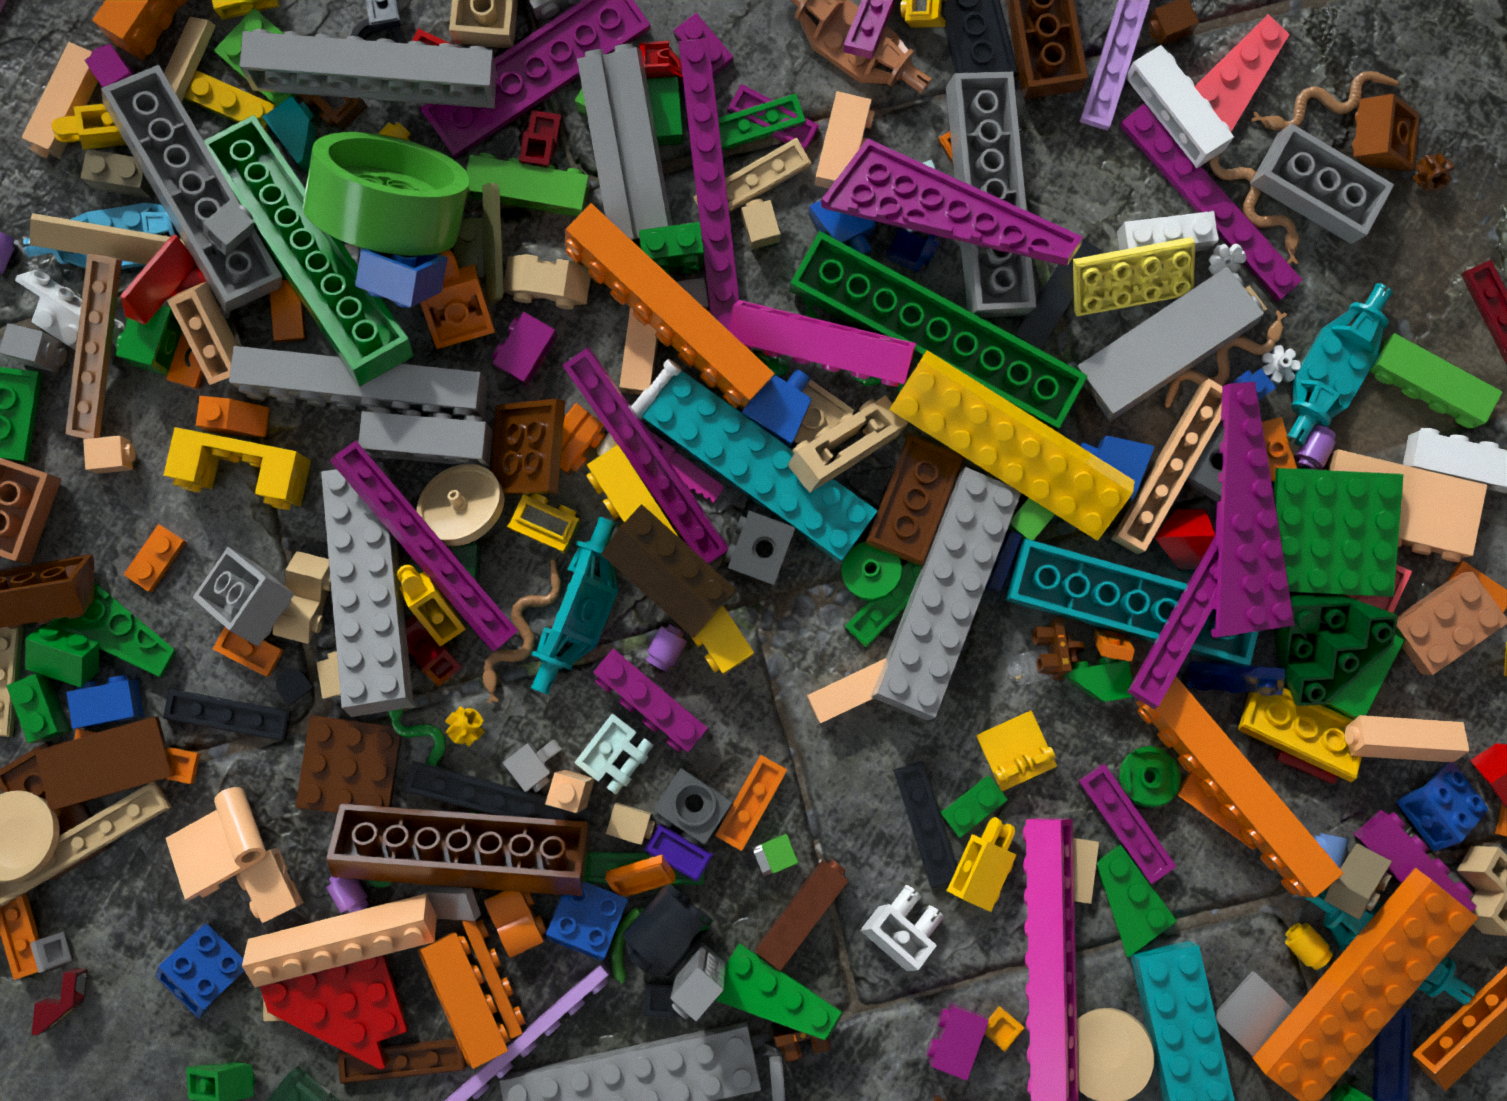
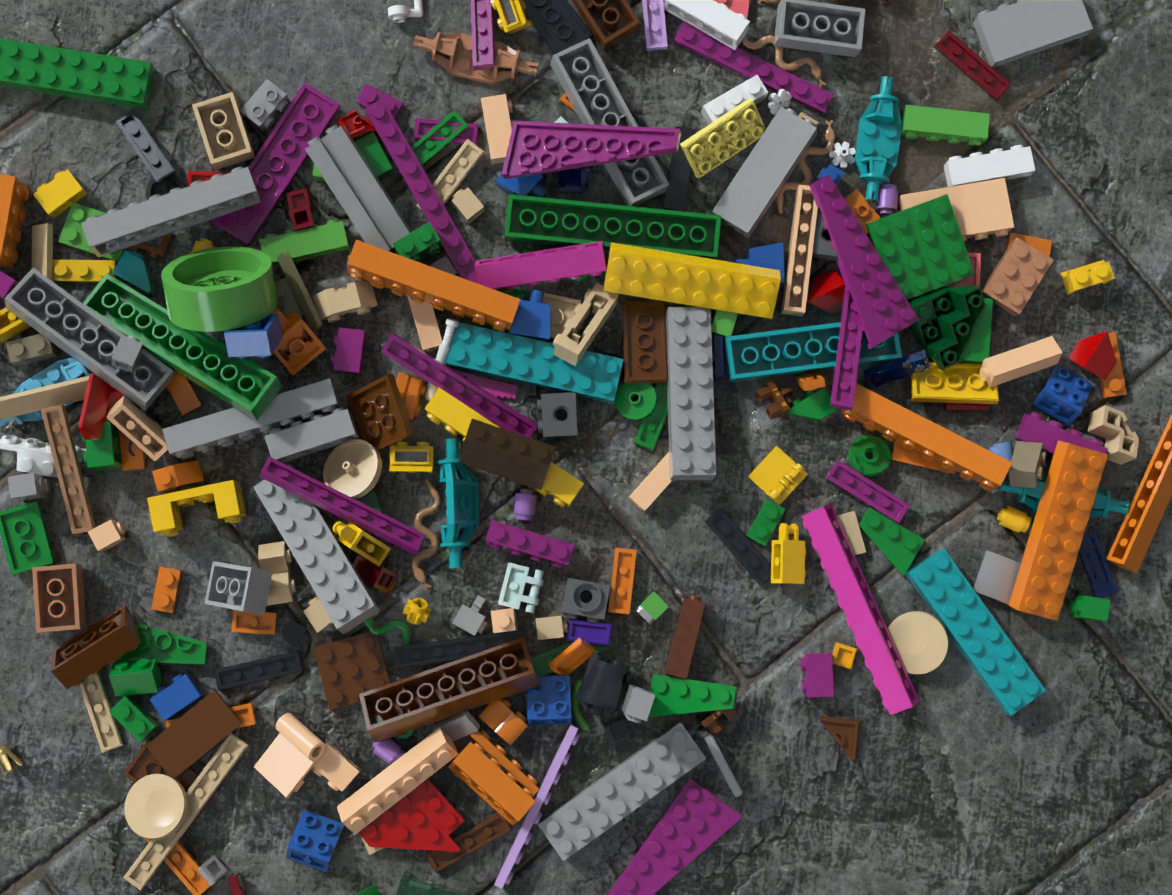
camera: 25 degrees left, 0 degrees up
(897, 936) = (753, 625): white brick -> none

